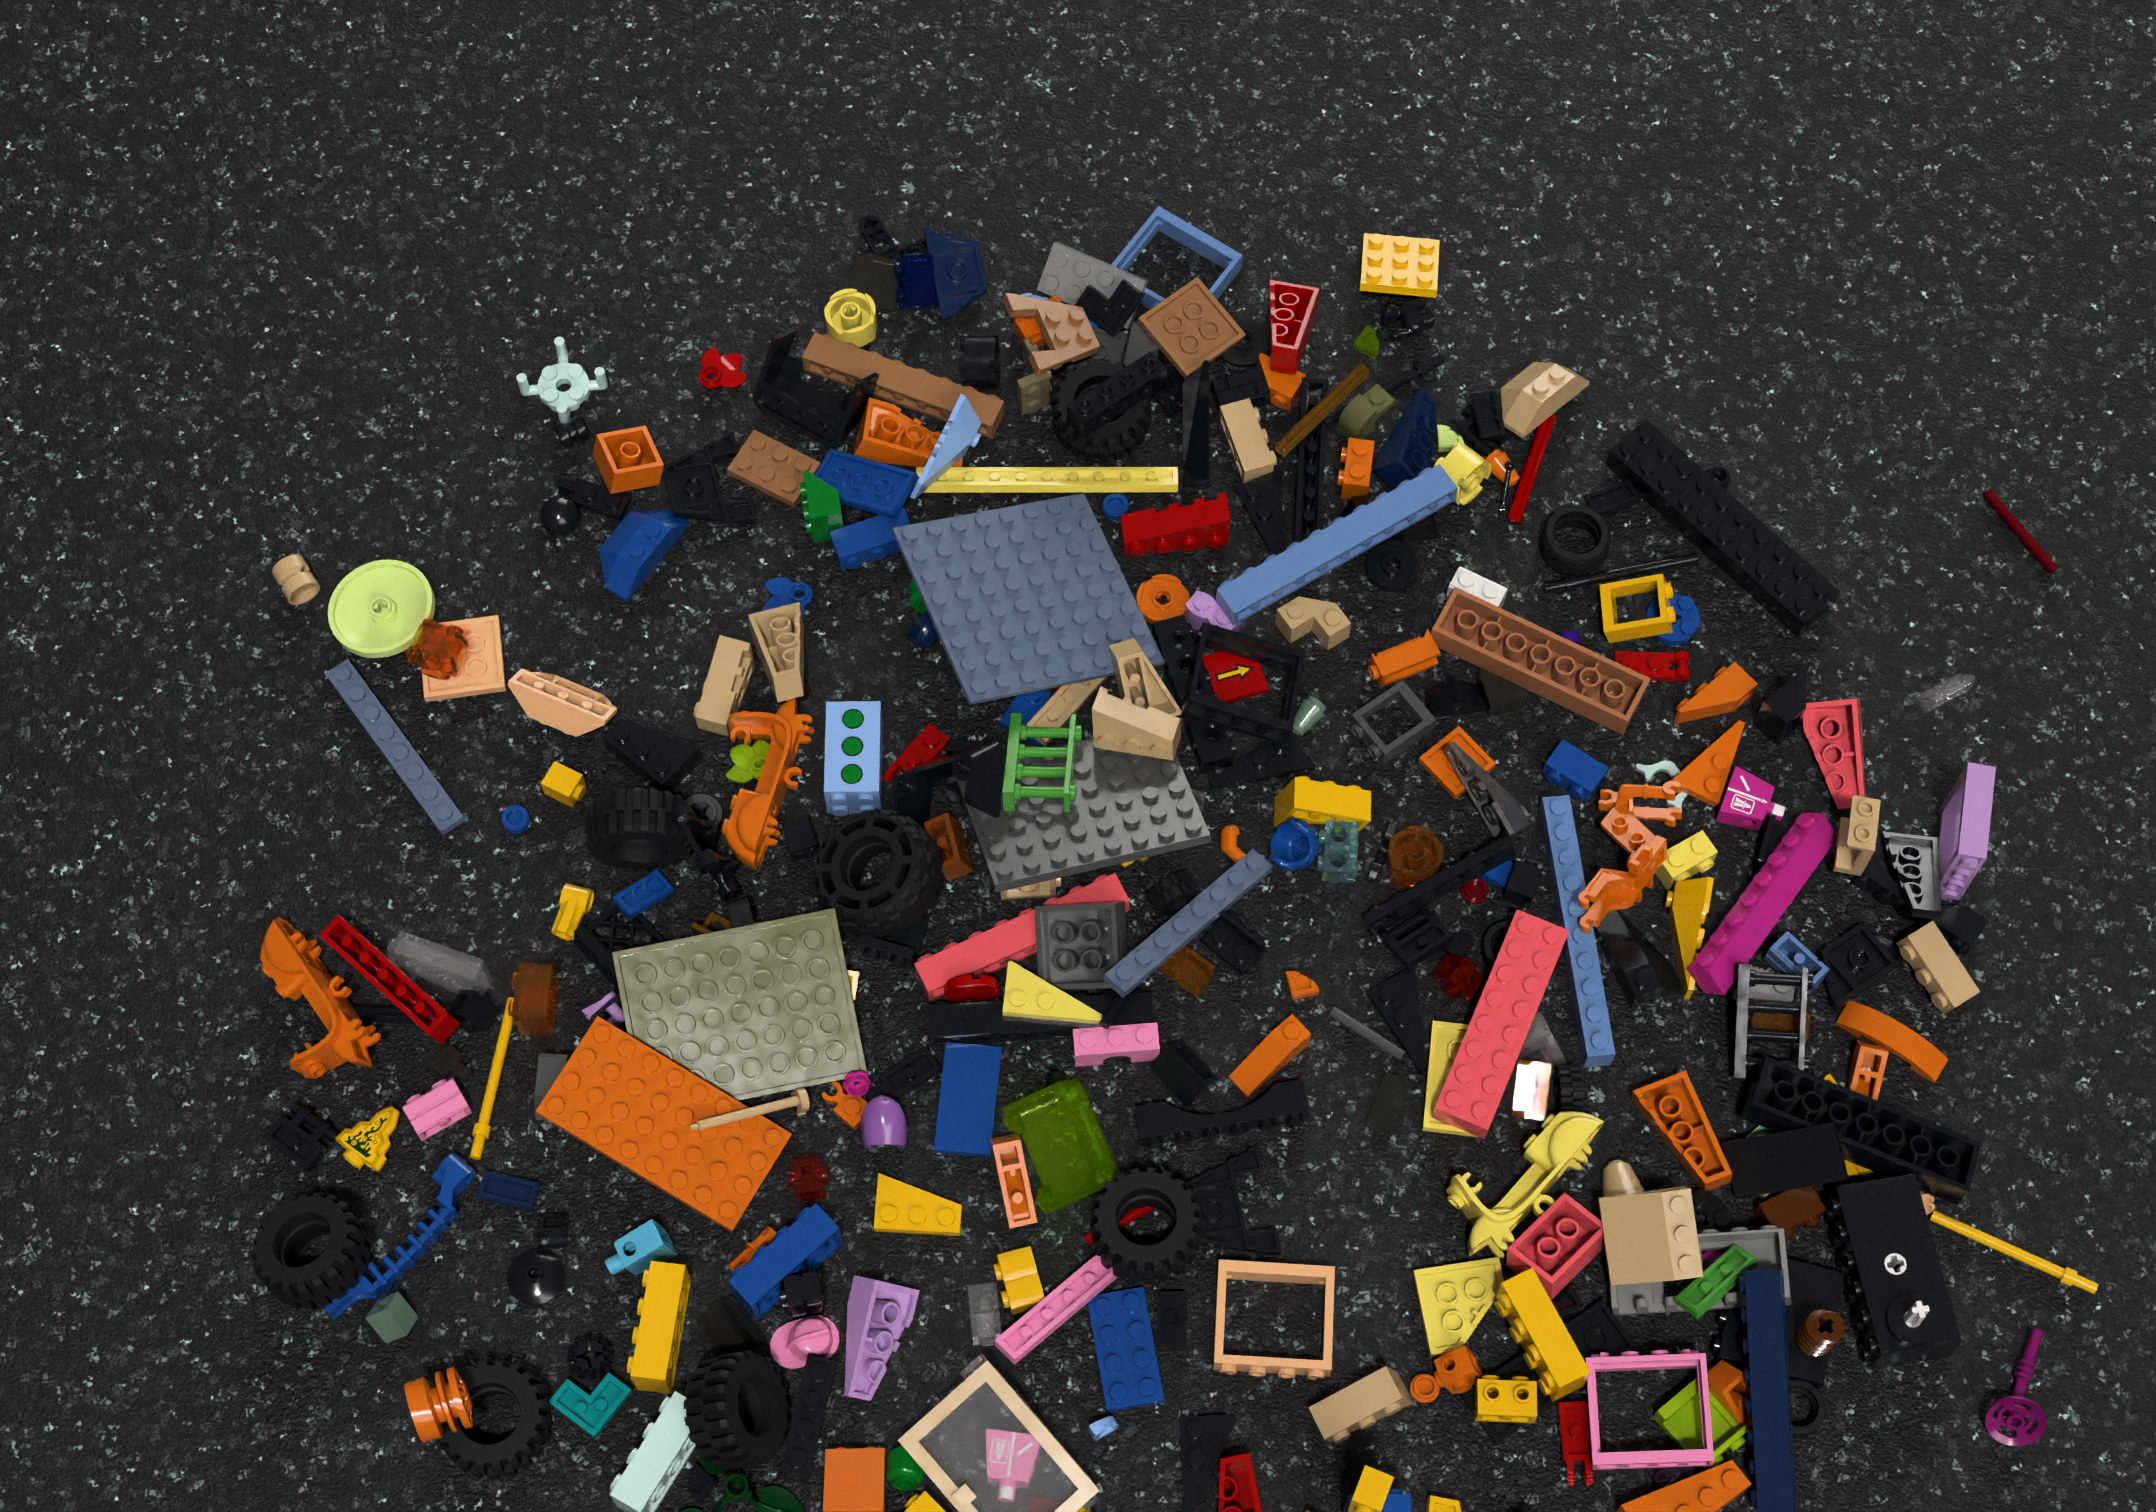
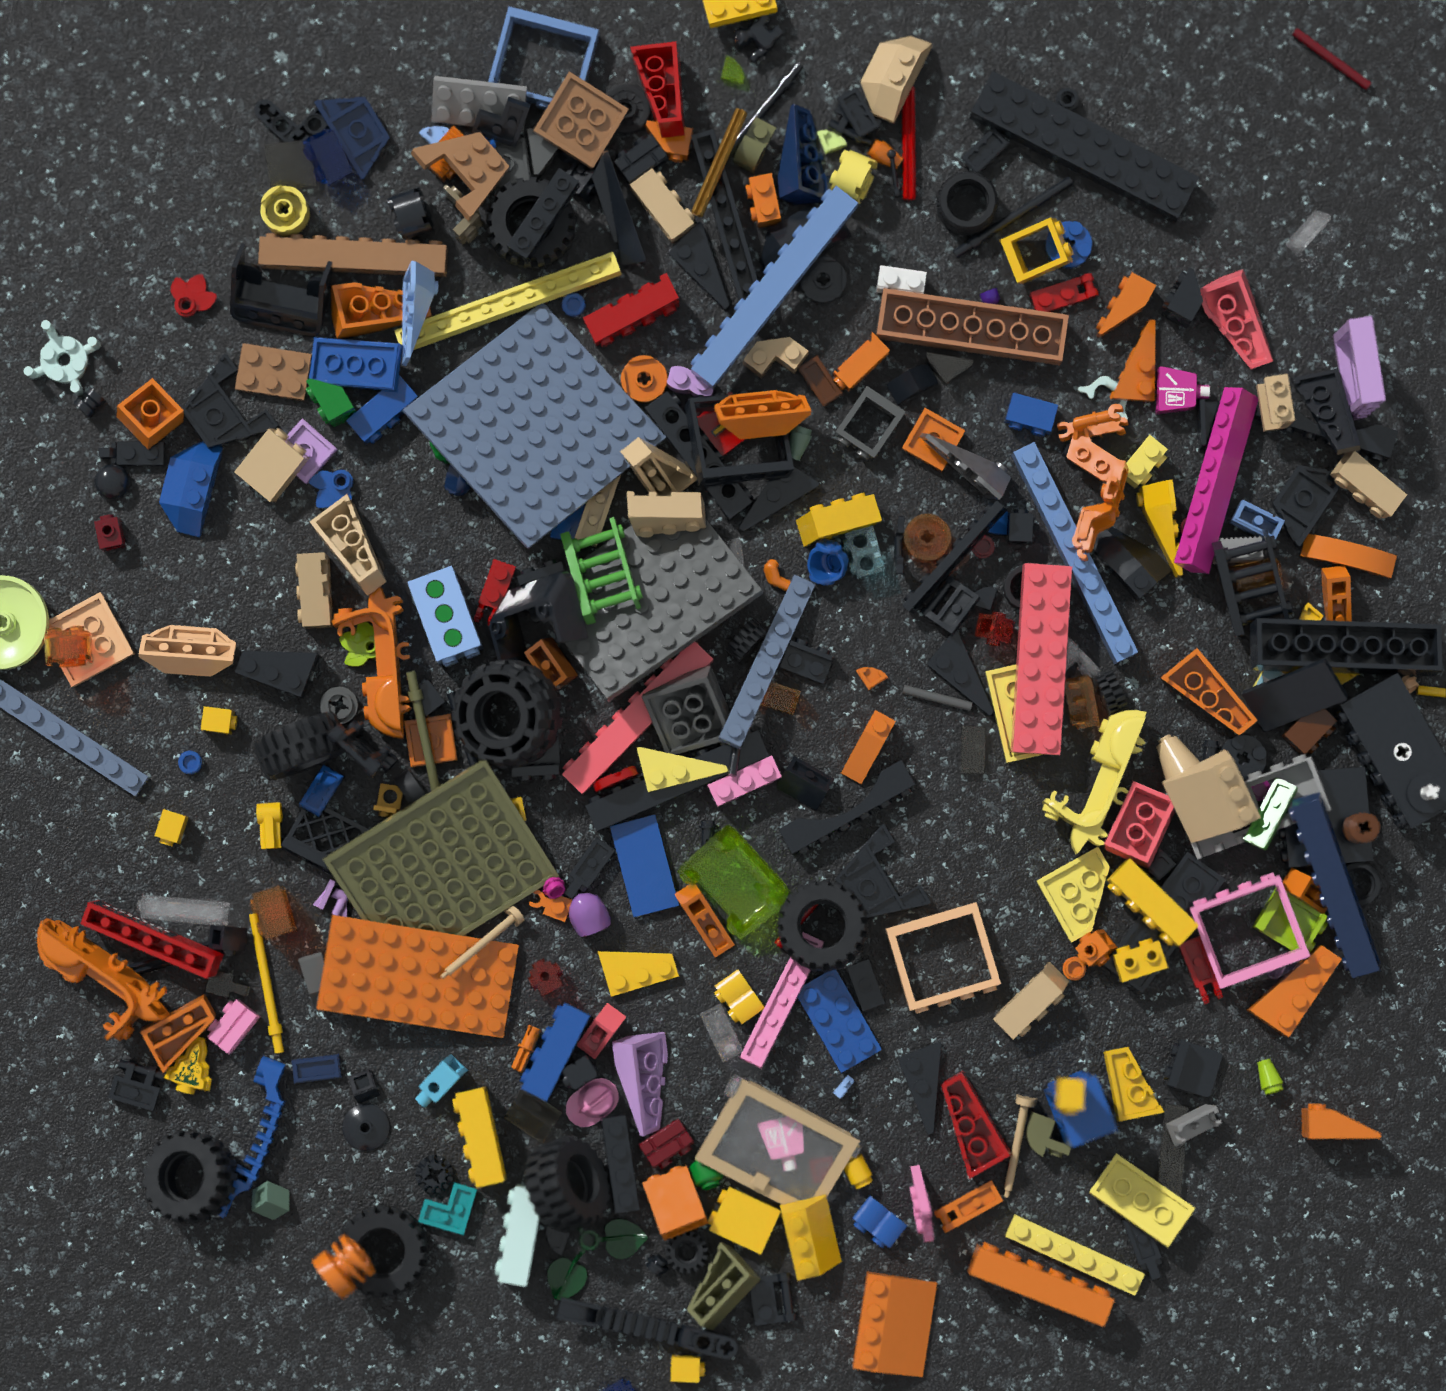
camera: 20 degrees left, 20 degrees up
(369, 1089) = (176, 1032): none -> orange wedge
(464, 875) = (171, 827): none -> yellow brick
(534, 563) = (109, 533): none -> dark red brick
(734, 550) = (272, 464): none -> tan brick
(773, 553) = (317, 448): none -> lavender tile
(784, 885) = (441, 739): none -> orange tile
(787, 825) = (415, 695): none -> olive bar
(848, 1258) = (601, 1031): none -> coral slope
(872, 1417) = (666, 1144): none -> dark red brick
(1276, 663) = (762, 413): none -> orange wedge
(1352, 666) = (820, 381): none -> reddish brown tile

